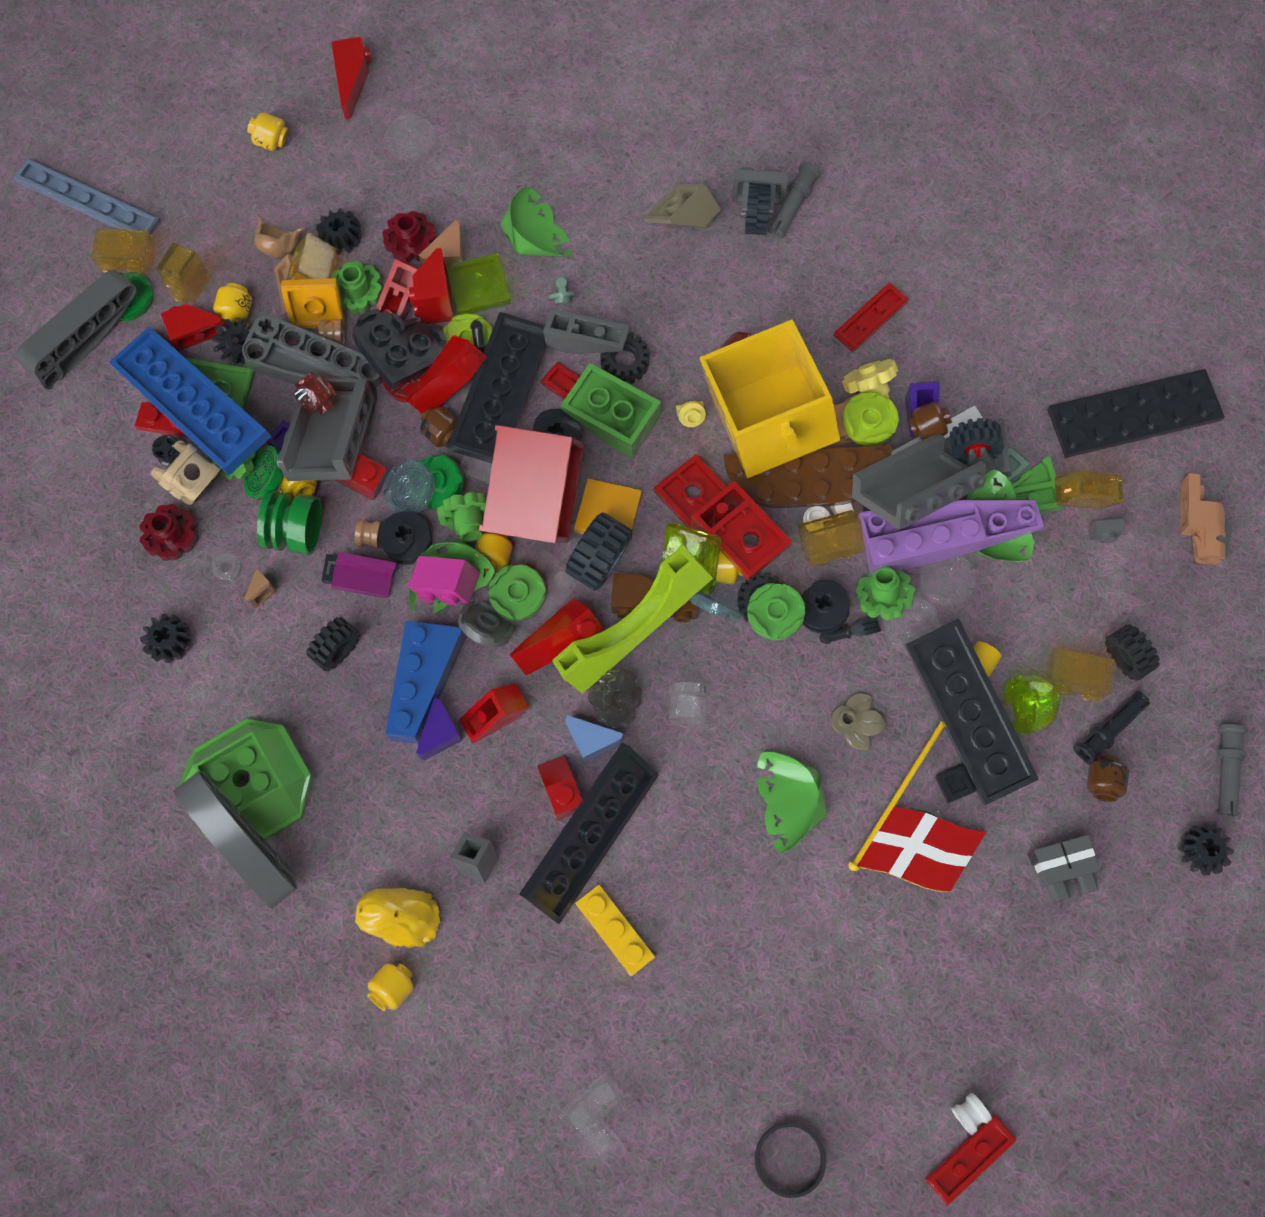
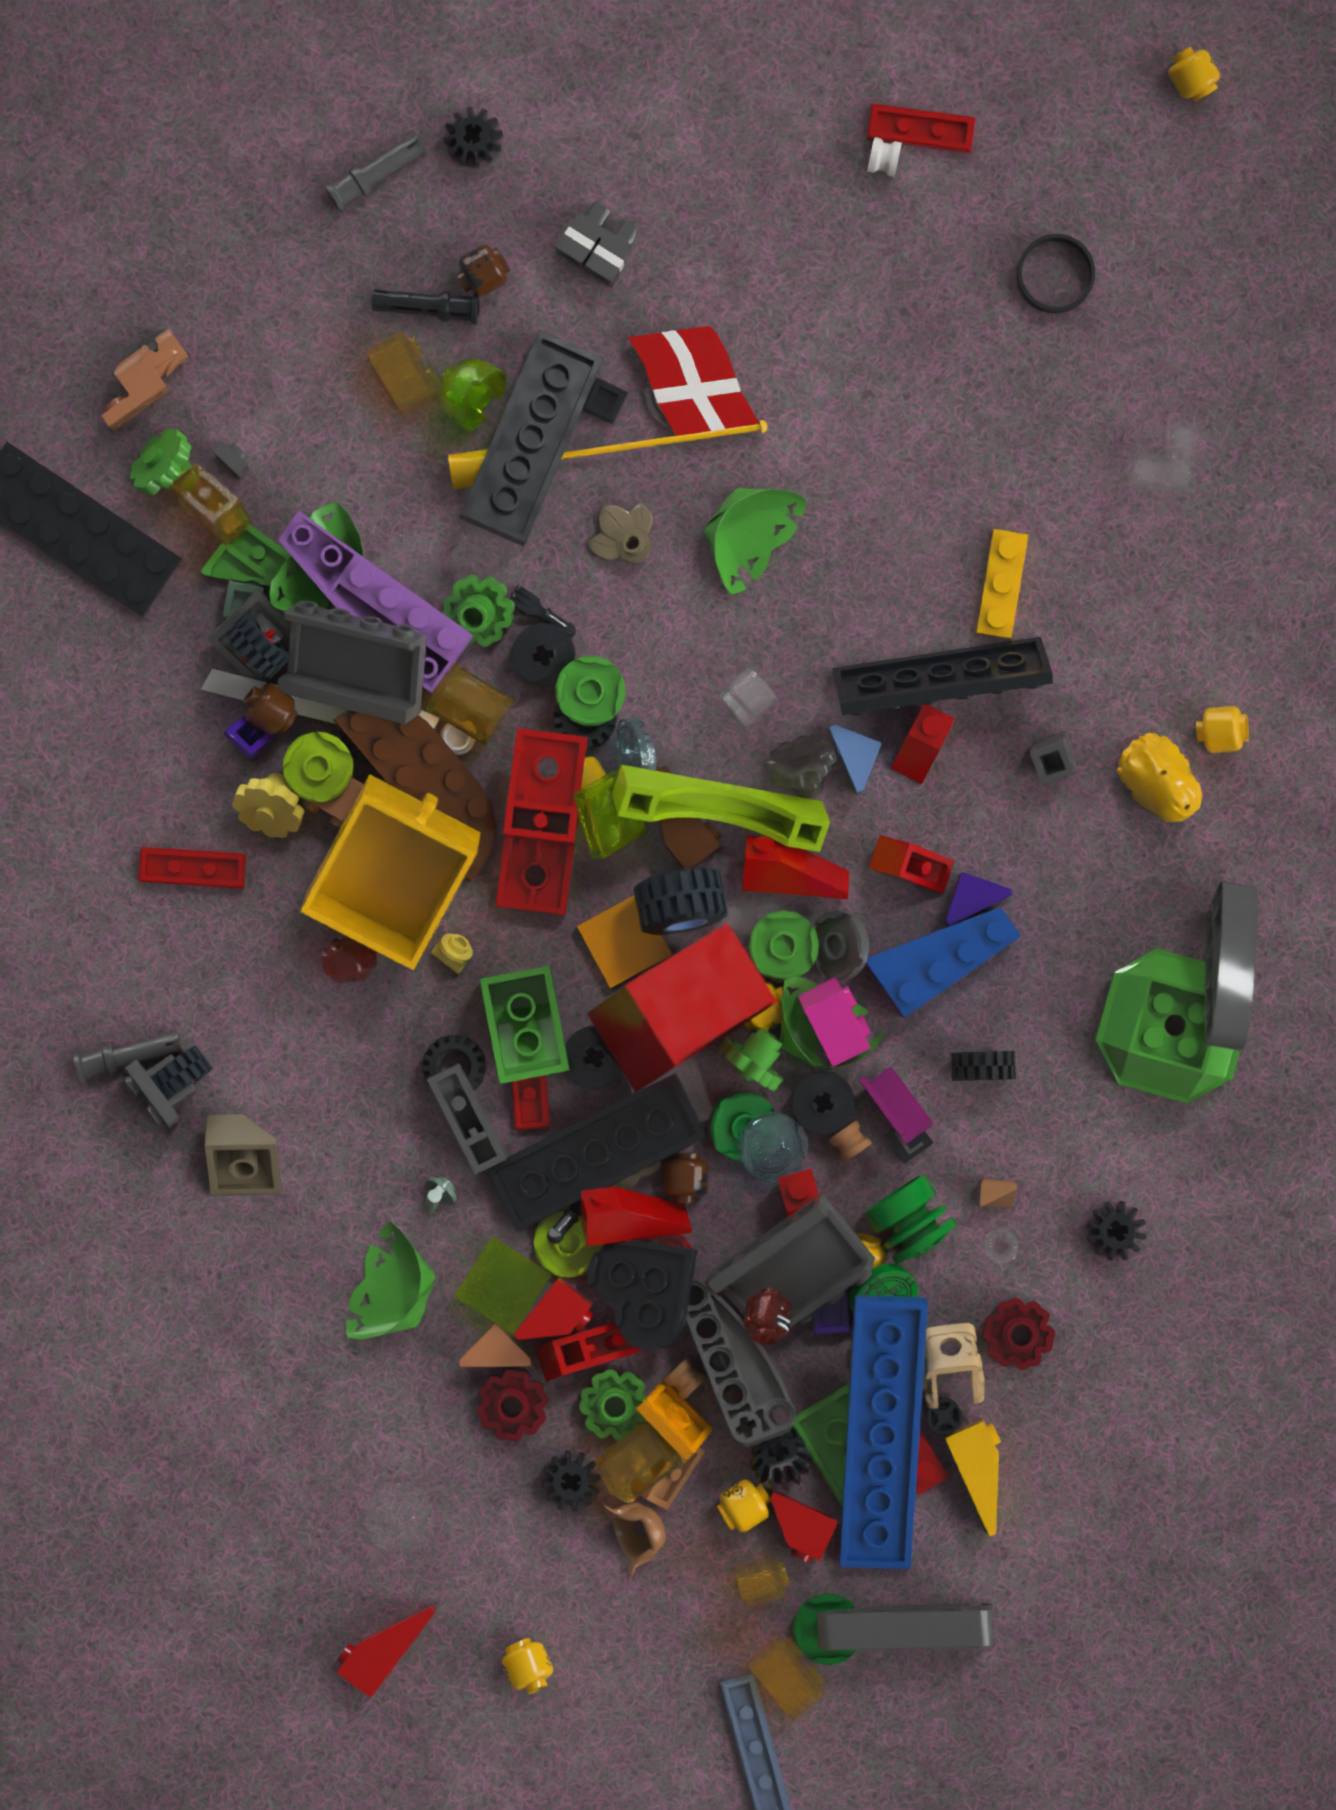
camera: 130 degrees left, 15 degrees up
(127, 446) = (978, 1464): none -> yellow slope
(1132, 652) = (342, 340): black tyre -> none
(1139, 486) = (161, 462): none -> bright green plant

